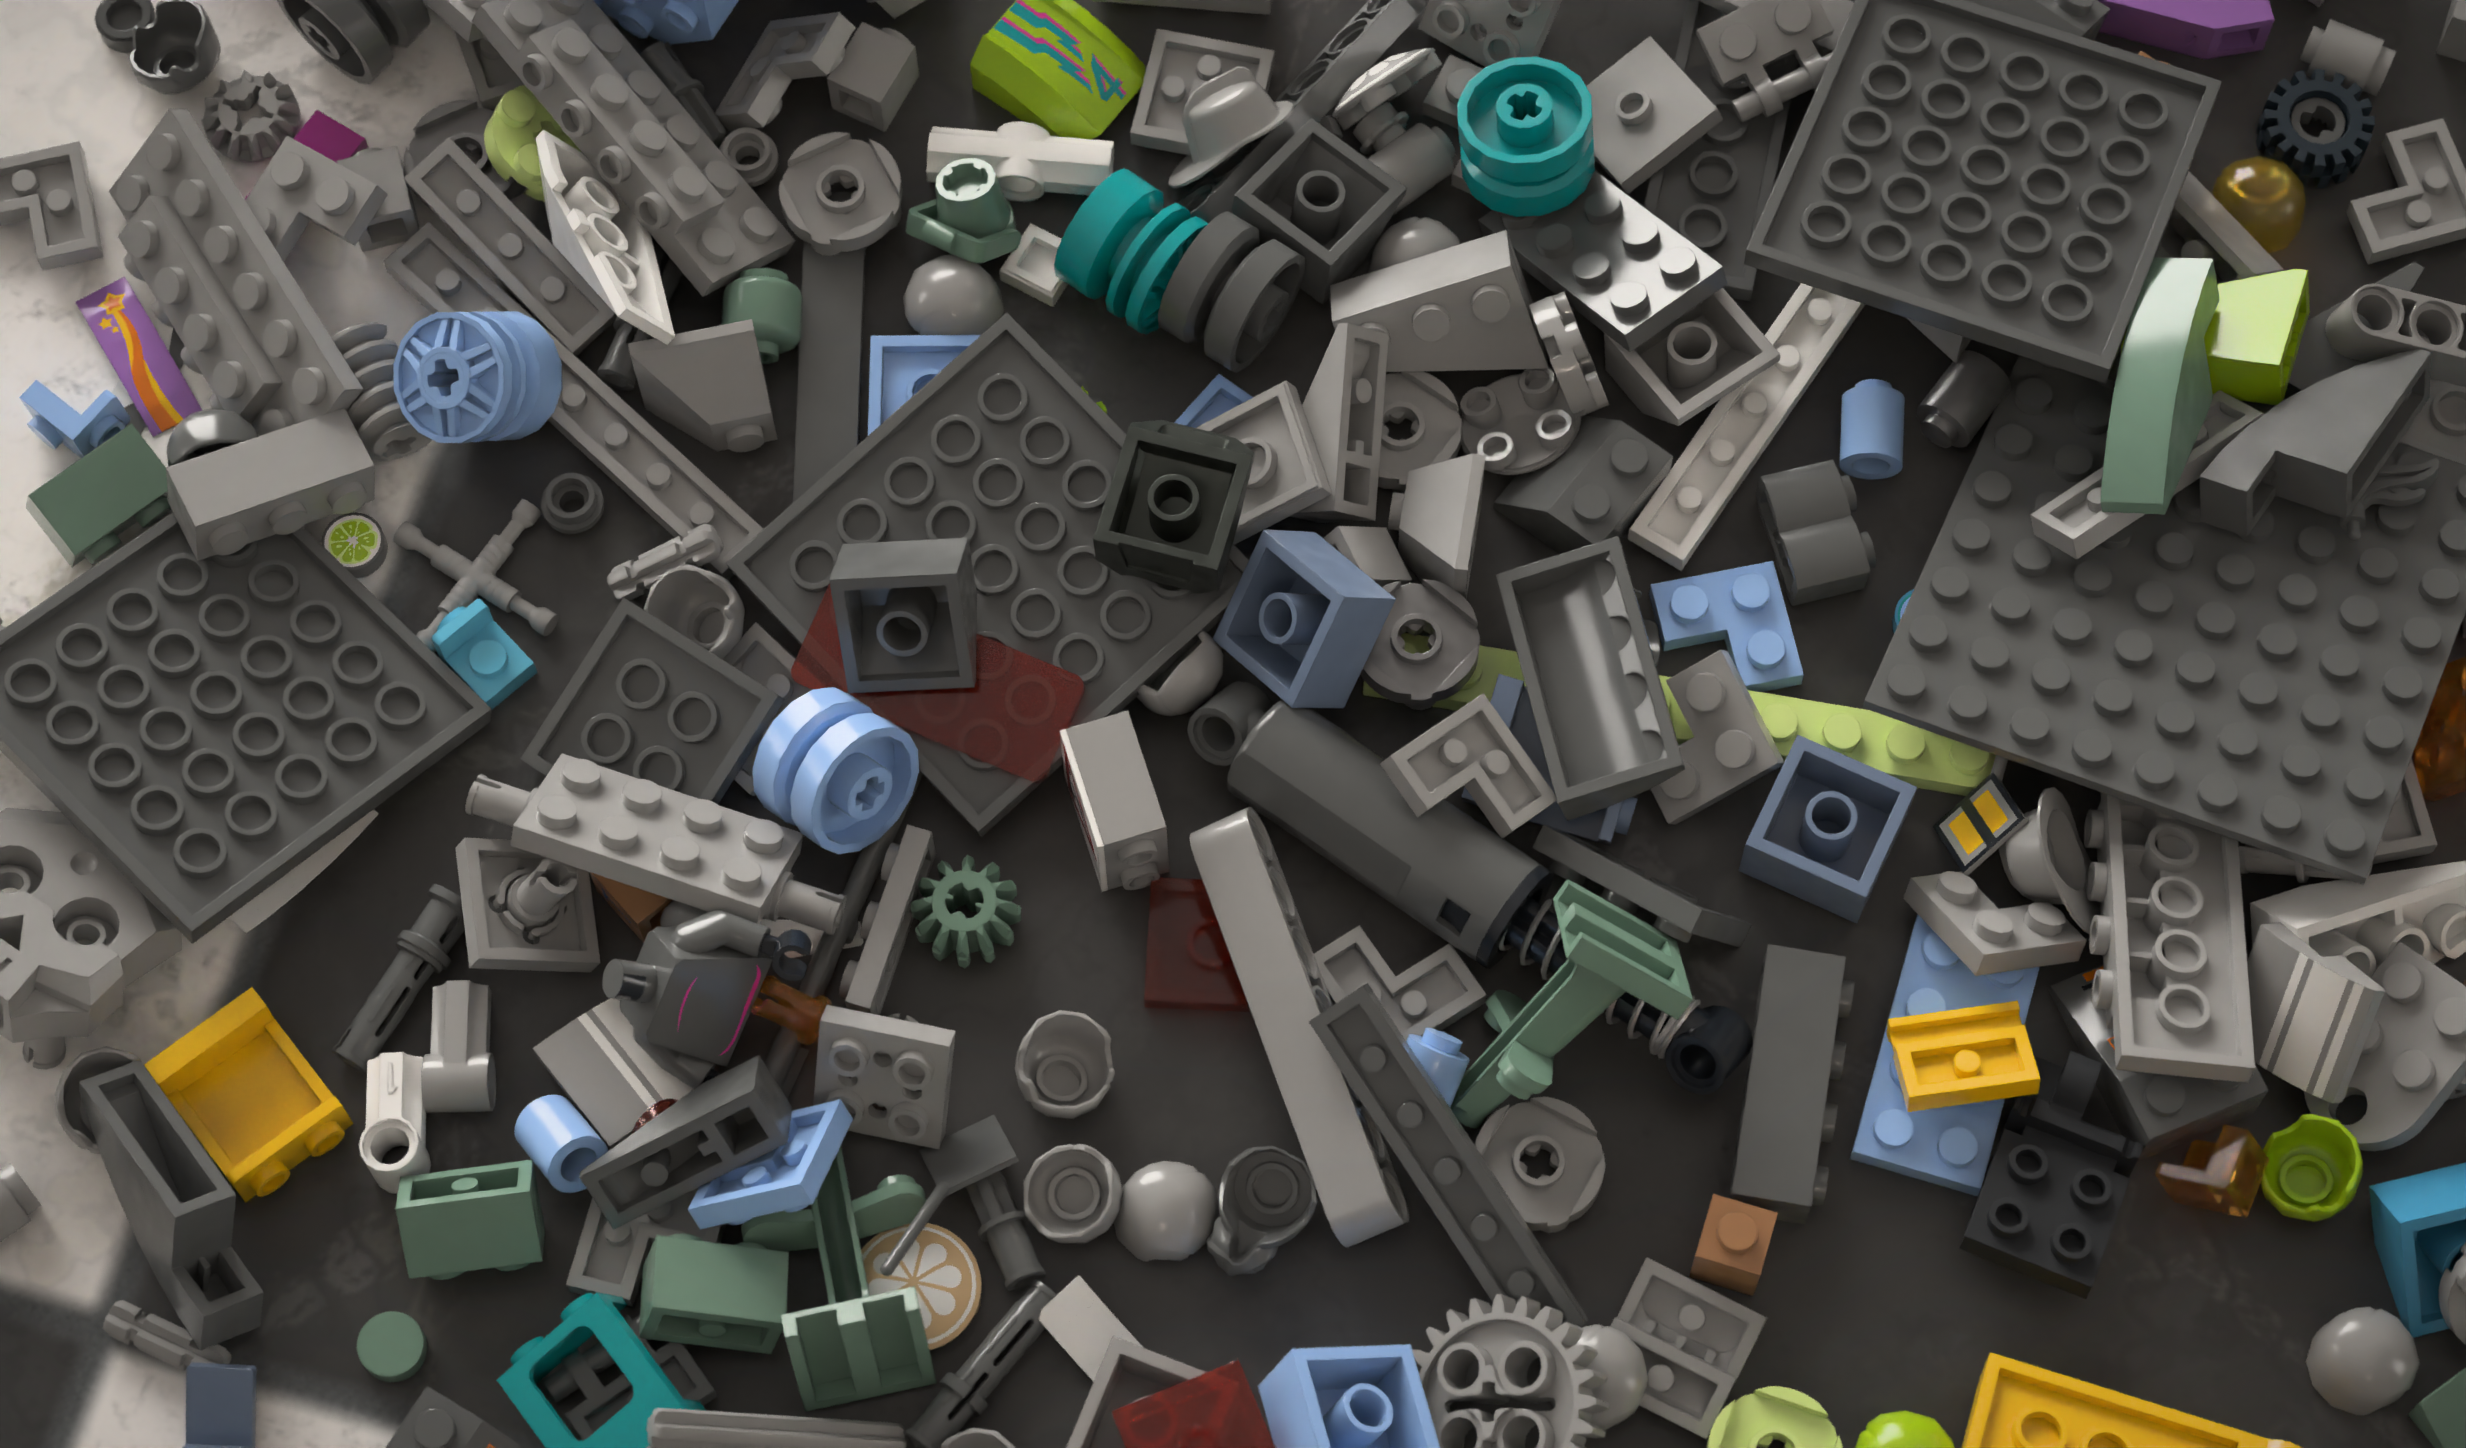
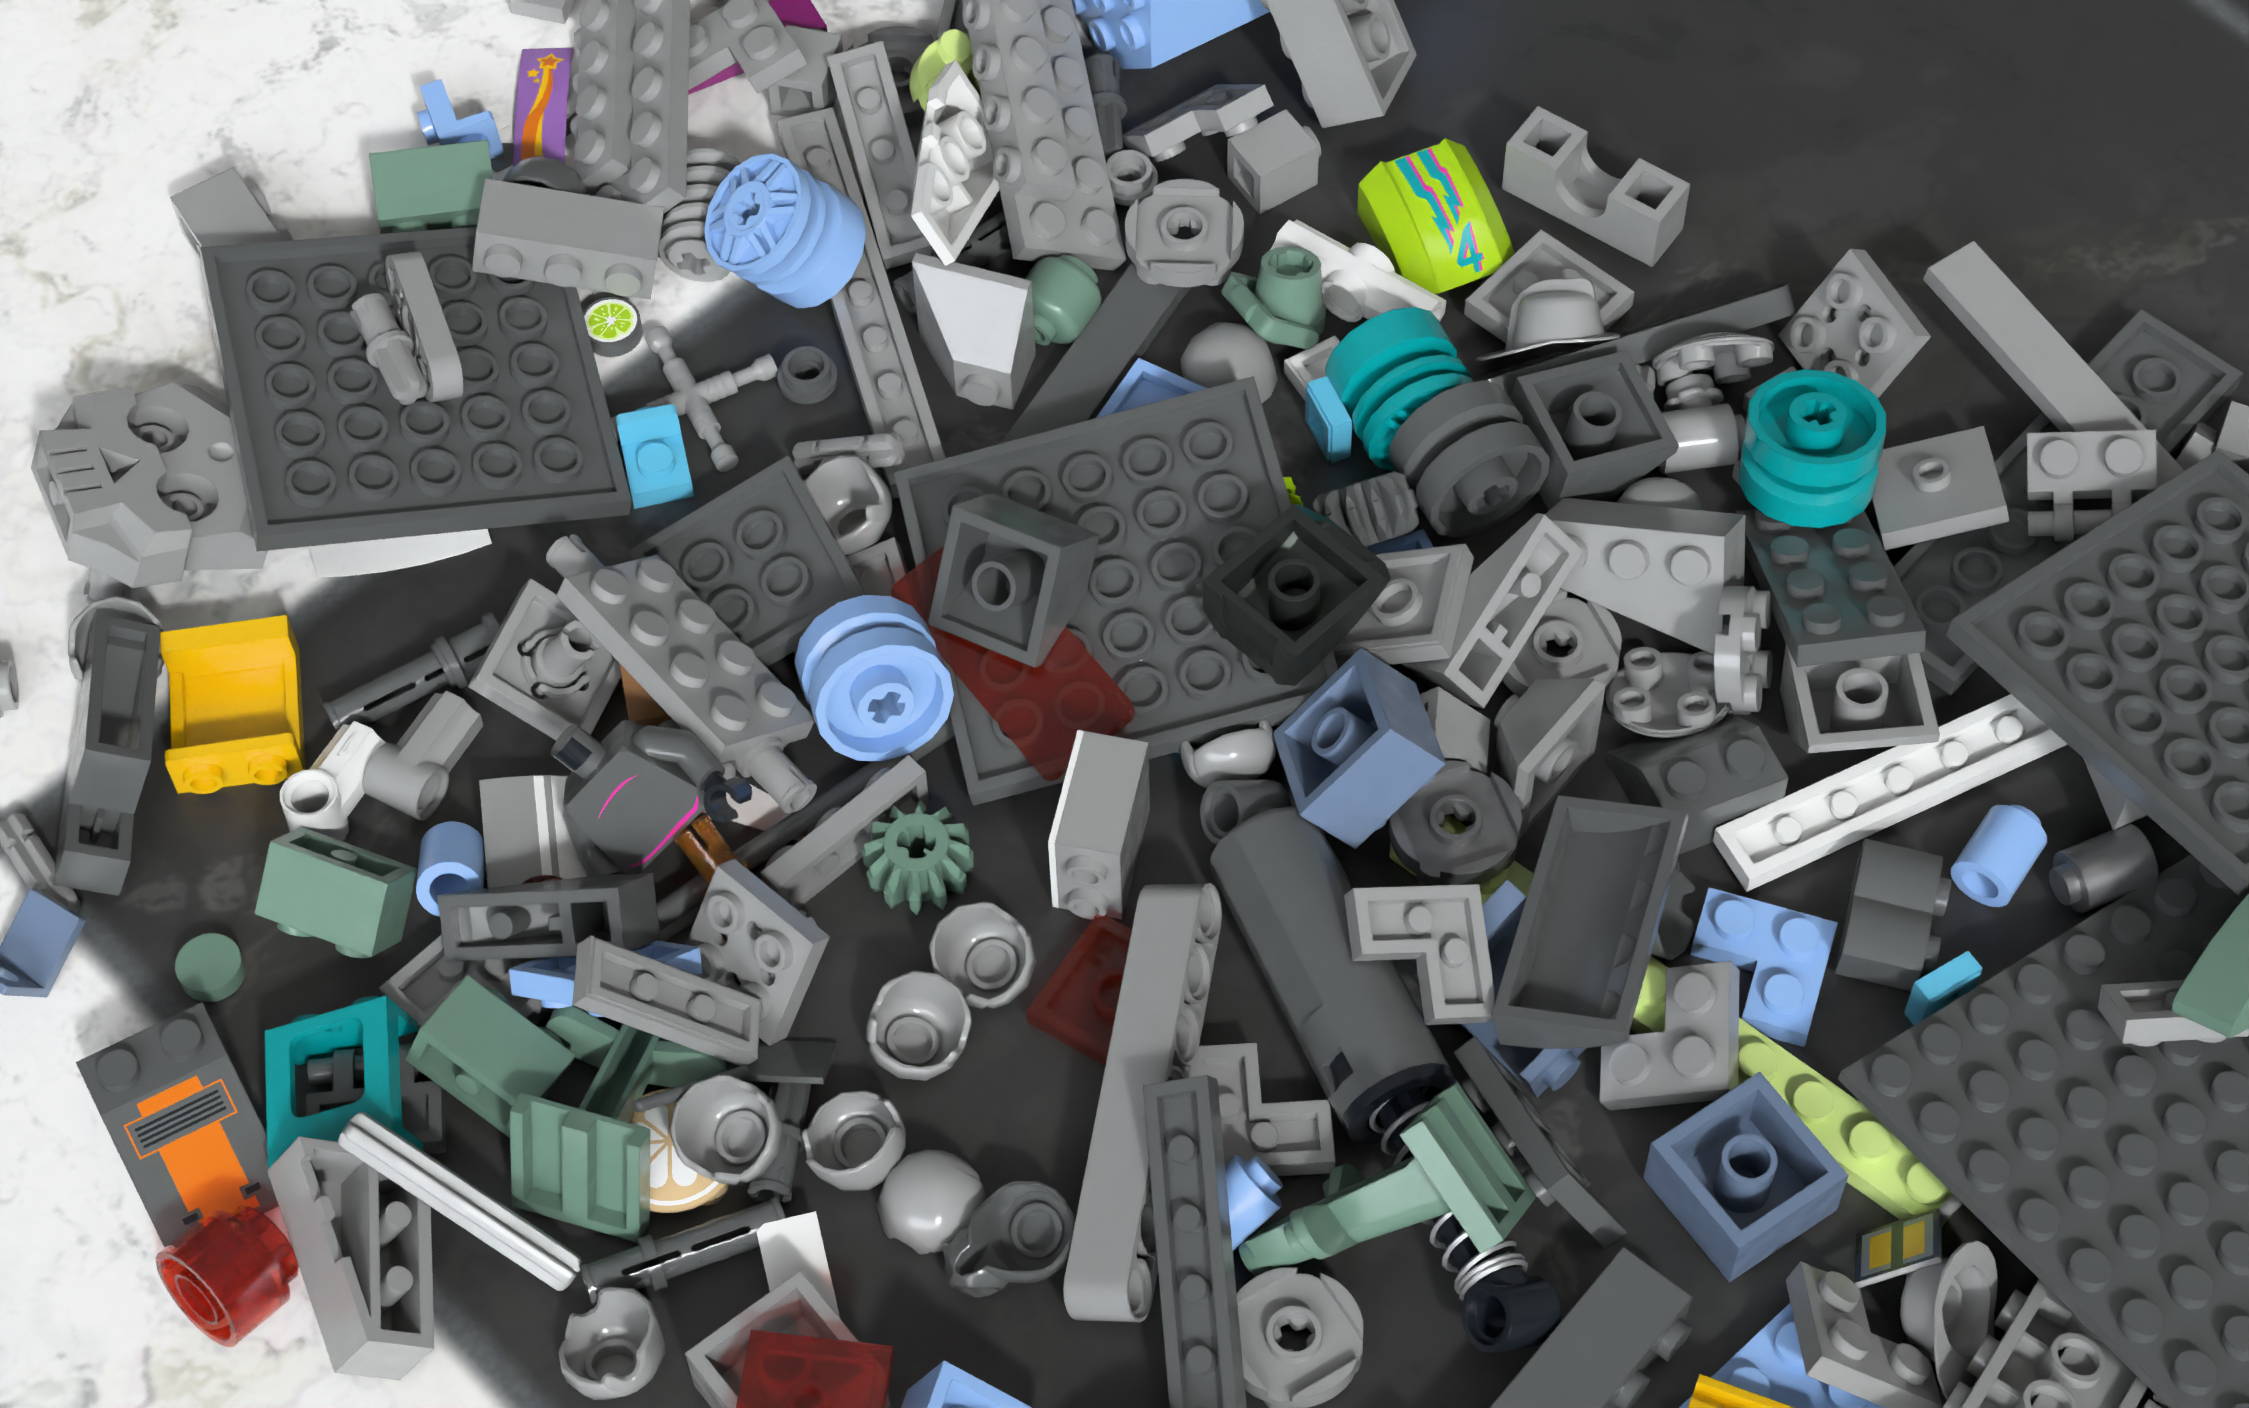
camera: 30 degrees right, 10 degrees down
(185, 683) = (389, 348): none -> light grey axle
(203, 644) = (424, 321): none -> light grey beam
(854, 1166) = (666, 1001): none -> light grey tile
(967, 1248) = (726, 1129): none -> light grey hair
(1076, 310) = (1328, 420): none -> medium azure tile
(1081, 970) = (983, 954): none -> light grey hair
(1169, 383) = (1371, 508): none -> dark grey gear
(1893, 578) = (1942, 987): none -> medium azure tile

